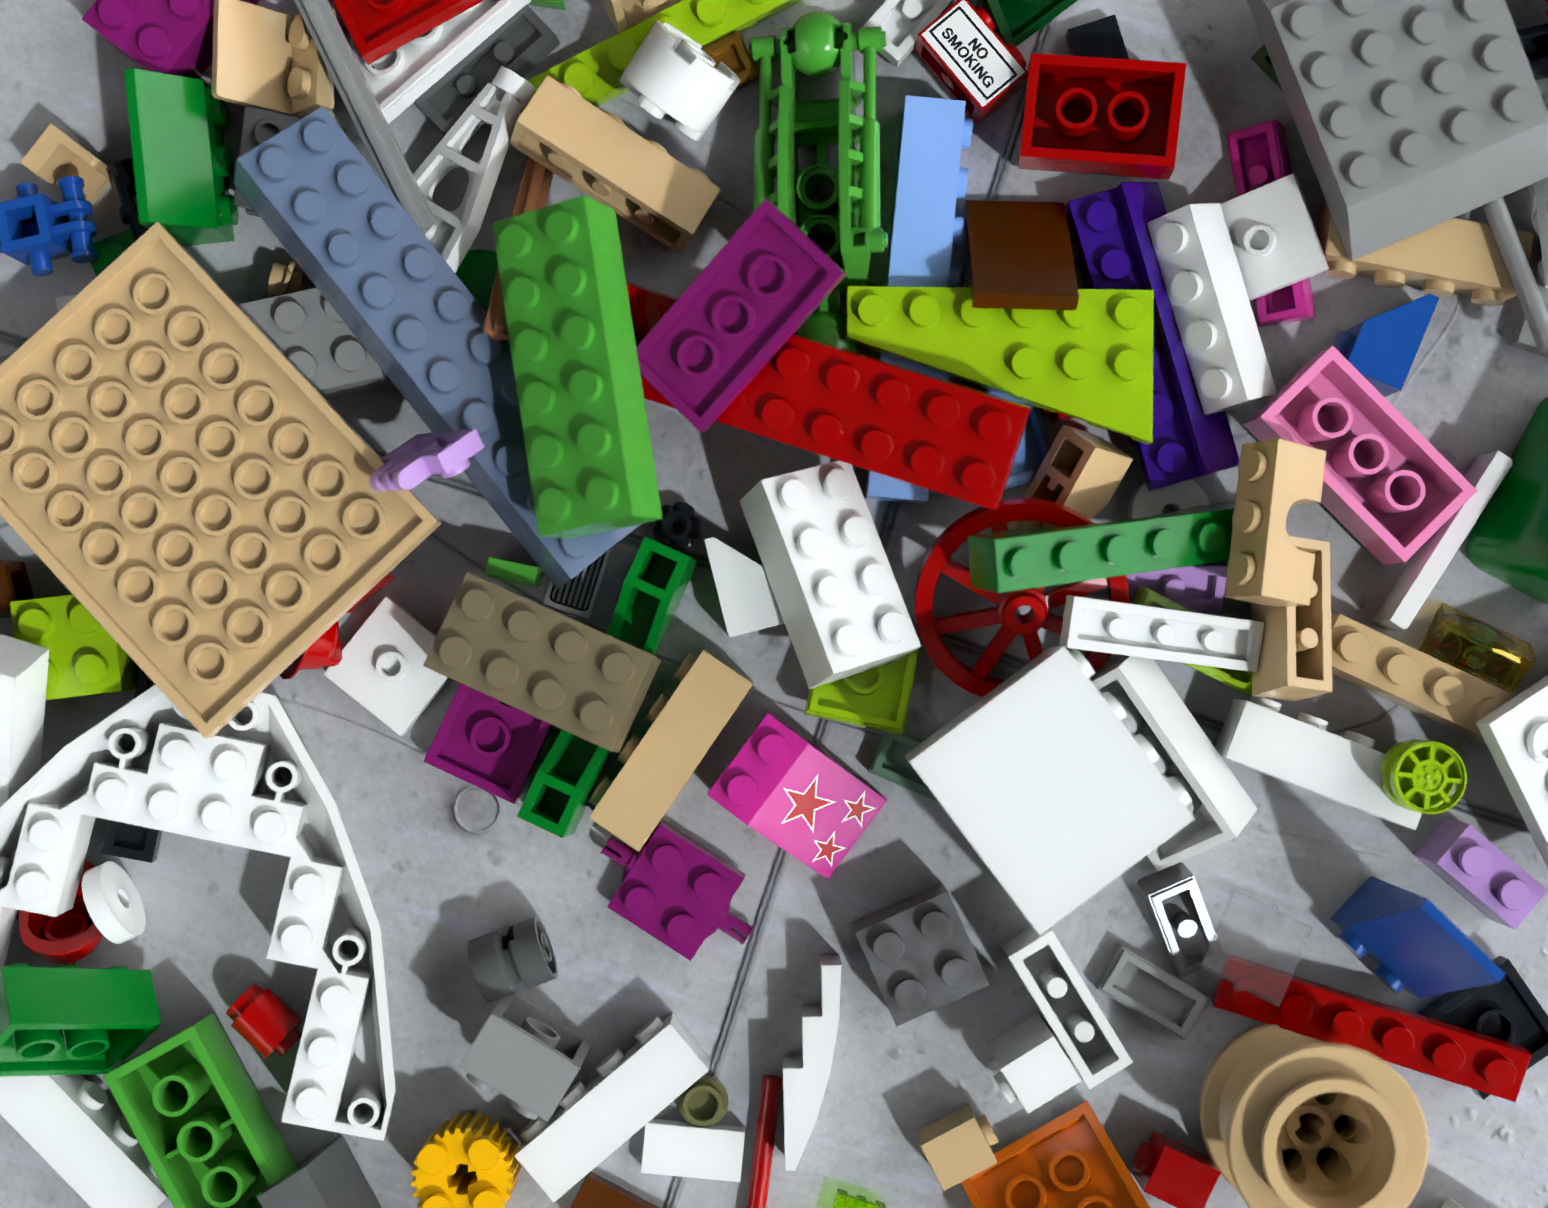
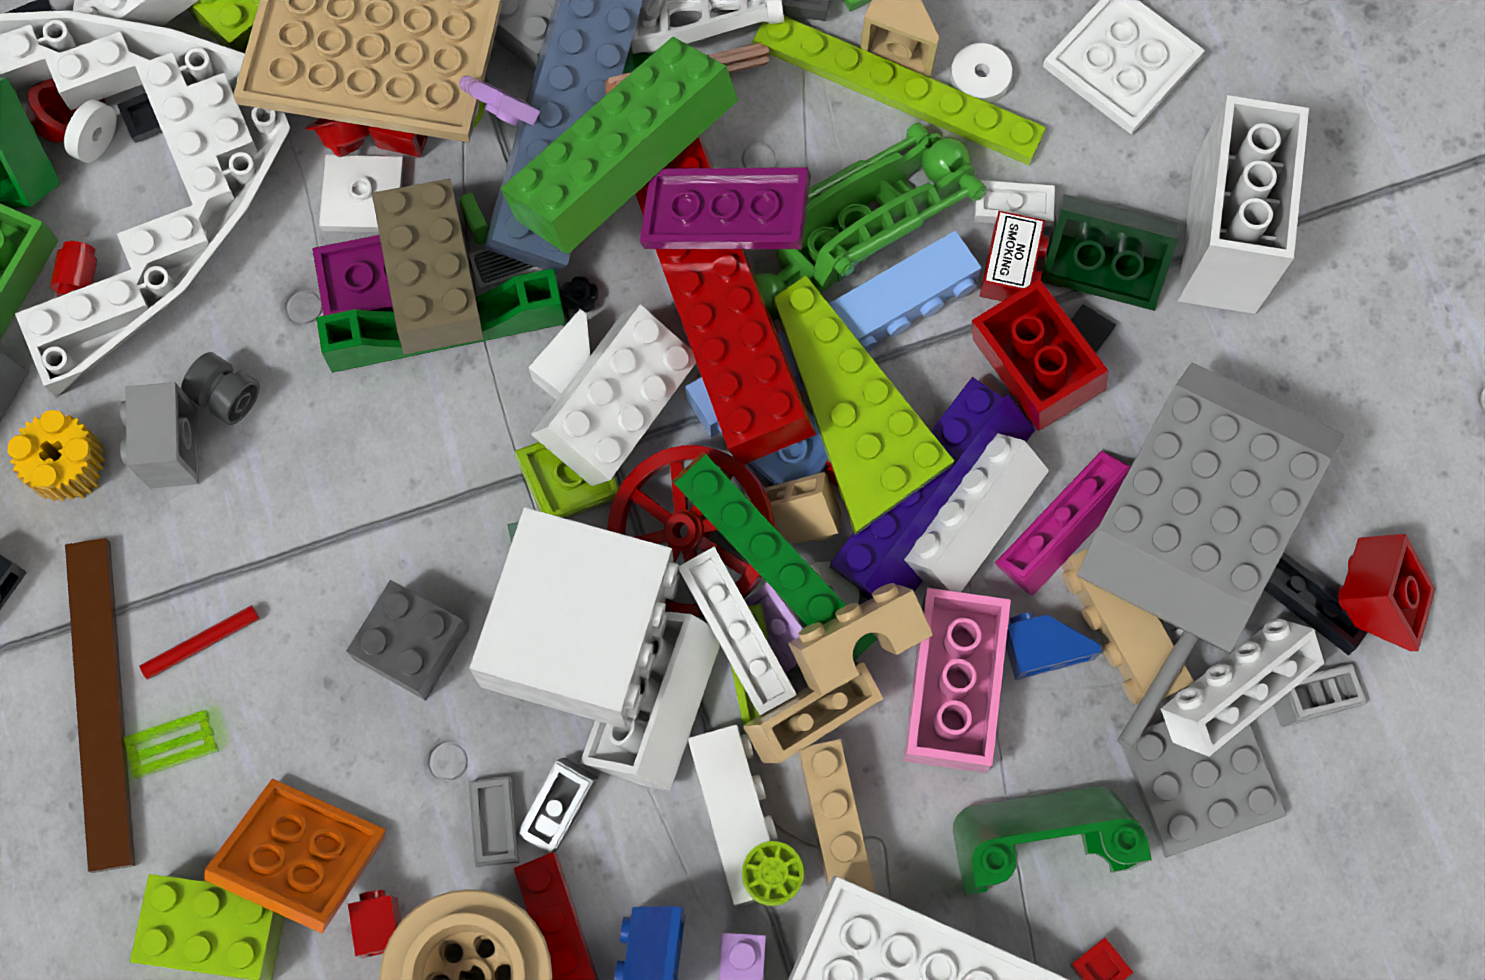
camera: 50 degrees right, 15 degrees down
(612, 1106) = (165, 519): white brick -> none
(613, 164) = (773, 92): tan brick -> none
(670, 749) = (430, 389): tan brick -> none
(676, 890) = (339, 461): magenta plate -> none
(679, 80) = (854, 94): white brick -> none
(693, 1151) = (170, 595): white tile -> none
(704, 1102) = (208, 578): olive plate -> none
(735, 55) = (891, 122): pearl gold tile -> none
(796, 795) = (457, 487): dark pink slope -> none
(808, 1074) = (268, 630): white slope -> none
(958, 1146) = (292, 762): tan brick -> none
(1020, 255) = (910, 367): reddish brown tile -> none
(1031, 1064) = (383, 760): white brick -> none
(1067, 1005) = (441, 757): white brick -> none
(1256, 947) = (575, 863): clear piece -> none
(1273, 237) = (1053, 520): white plate -> none
(1437, 552) = (947, 784): white tile -> none
(1478, 648) = (896, 865): clear yellow slope -> none

